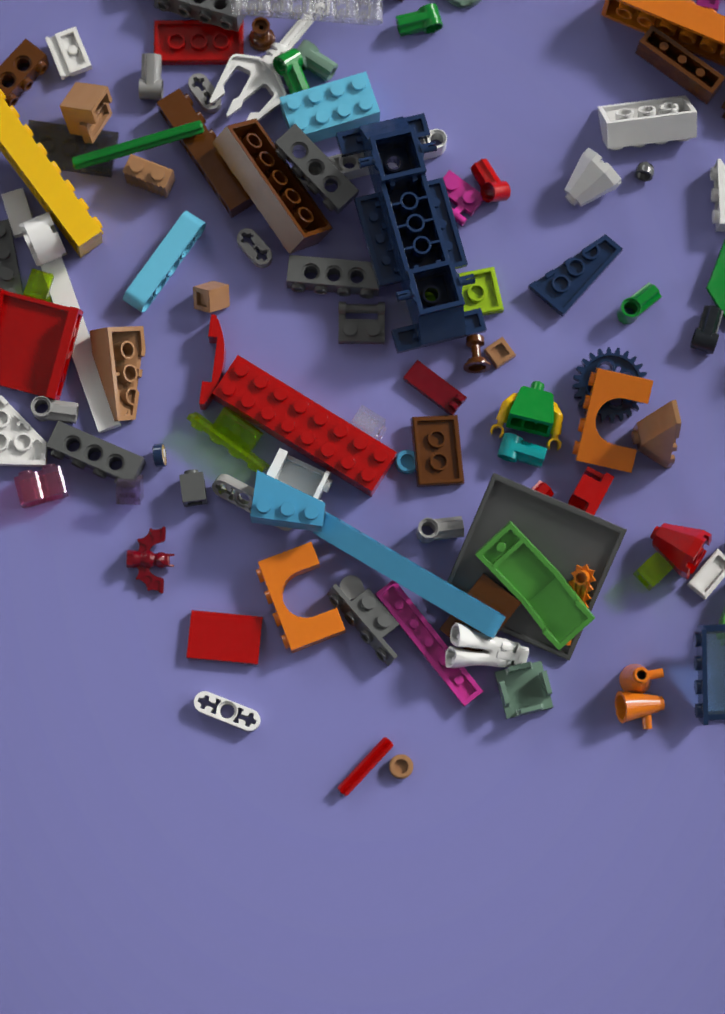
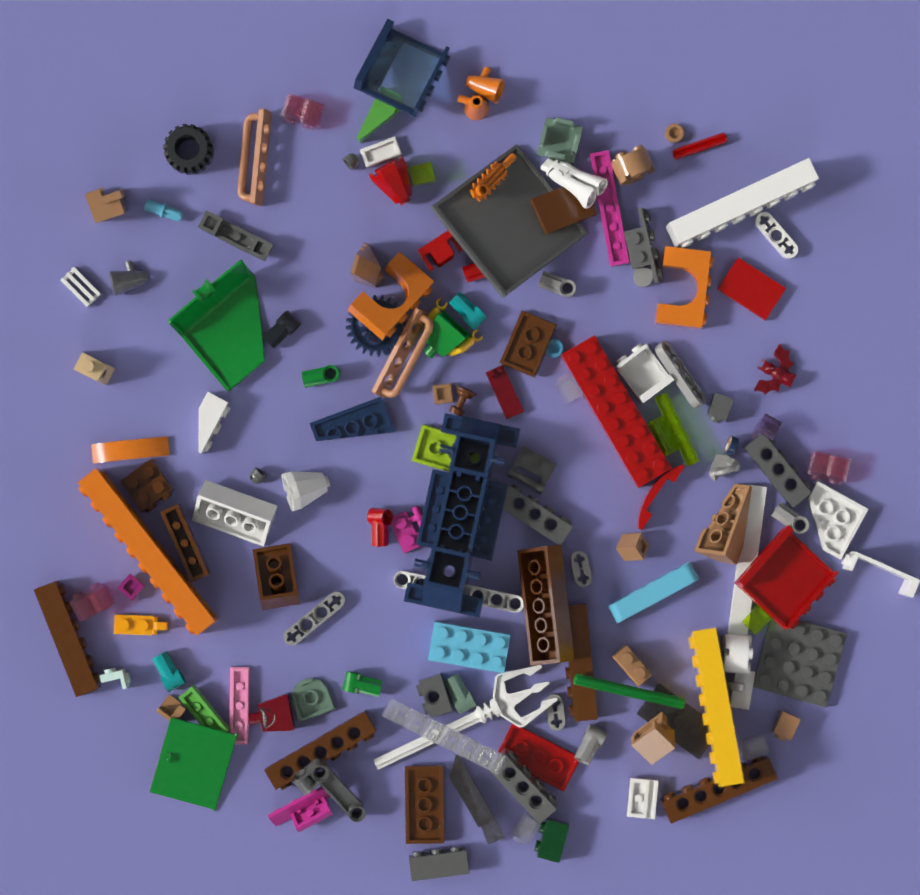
camera: 150 degrees left, 10 degrees up
(28, 206) = (735, 686): none -> light grey tile
(157, 427) = (722, 465): none -> light grey piece
(261, 35) = (488, 735): reddish brown piece -> none
(284, 722) = (741, 203): none -> white brick
(285, 506) = (664, 354): dark azure wedge -> none
(289, 66) = (482, 695): green piece -> none
(297, 139) = (511, 629): dark grey brick -> none
(335, 33) = (437, 707): none -> dark grey brick
(411, 575) = (599, 261): dark azure beam -> none
(428, 700) = (632, 166): none -> medium nougat brick
(504, 61) = (312, 615): none -> light grey beam
(536, 584) = (513, 202): bright green windscreen -> none
(565, 323) = (419, 318): none -> nougat piece
(568, 80) = (276, 576): none -> reddish brown slope

